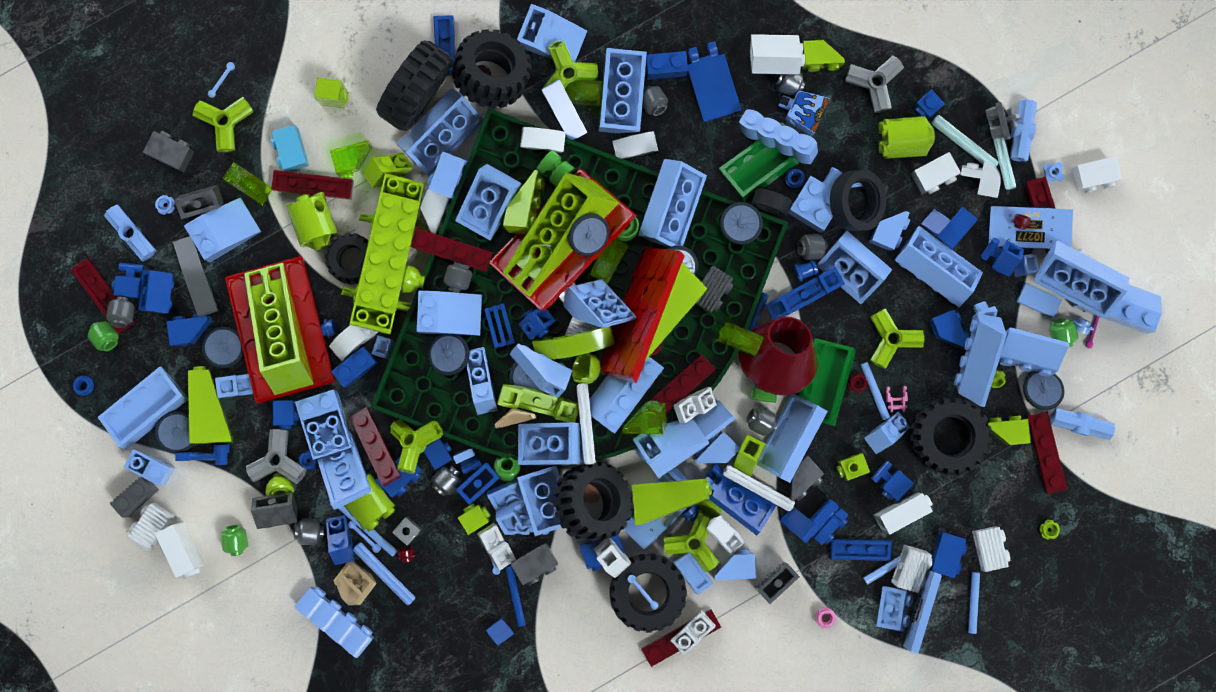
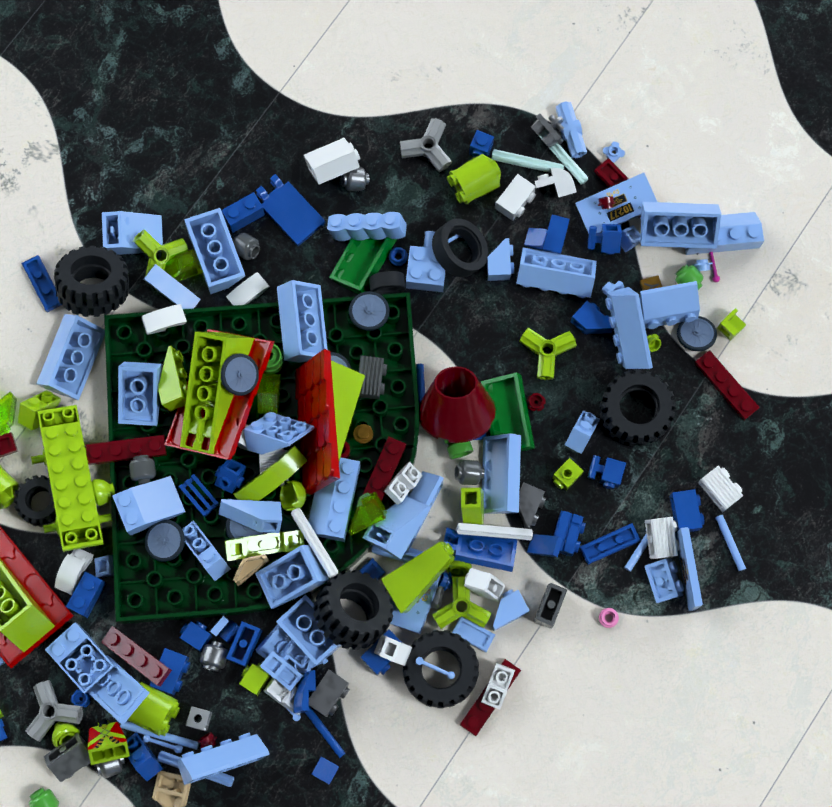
camera: 20 degrees left, 10 degrees down
(285, 414) = (41, 666): blue brick -> none
(313, 514) = (107, 742): none -> lime torso
(329, 328) = (47, 572): blue plate -> none
(411, 579) = (222, 758): none -> light blue slope
(413, 442) = (169, 634): lime piece -> none
(414, 85) = (29, 323): black tyre -> none
(434, 210) = (96, 423): white slope -> none
(447, 174) = (93, 388): light blue brick -> none
(501, 524) = (281, 670): none -> light blue slope
(504, 473) = (263, 618): bright green head -> none
(517, 547) = (305, 686): none -> blue slope
(553, 167) = (183, 337): bright green wheel -> none
(591, 494) = (350, 607): nougat tile -> none
(628, 469) = (373, 569): none -> blue tile
(679, 340) = (363, 433): none -> pearl gold plate
(719, 451) = (444, 516): light blue slope -> none
(740, 339) = (414, 407): clear neon green slope -> none
(804, 110) = (379, 195): torso -> none
(805, 294) = (455, 346): blue slope -> none
(806, 270) = (444, 327): blue bush -> none
(812, 246) = (440, 305): dark grey head -> none
(821, 55) = (371, 146): lime slope -> none
(857, 266) = (484, 306): light blue slope -> none
(875, 391) = (556, 403): light blue bar -> none
(889, 399) = (571, 403): bright pink piece -> none
(903, 512) = (629, 492): white brick -> none
(1012, 431) = (687, 380): lime slope -> none
(1023, 322) = (651, 283): none -> pearl gold tile
(1039, 300) = (655, 262): light blue tile -> none
(1055, 529) = (762, 444): lime plate -> none
(1081, 397) = (731, 325): none -> lime panel
(1082, 424) = (744, 346): light blue piece -> none
(1096, 174) = (650, 137): white brick -> none

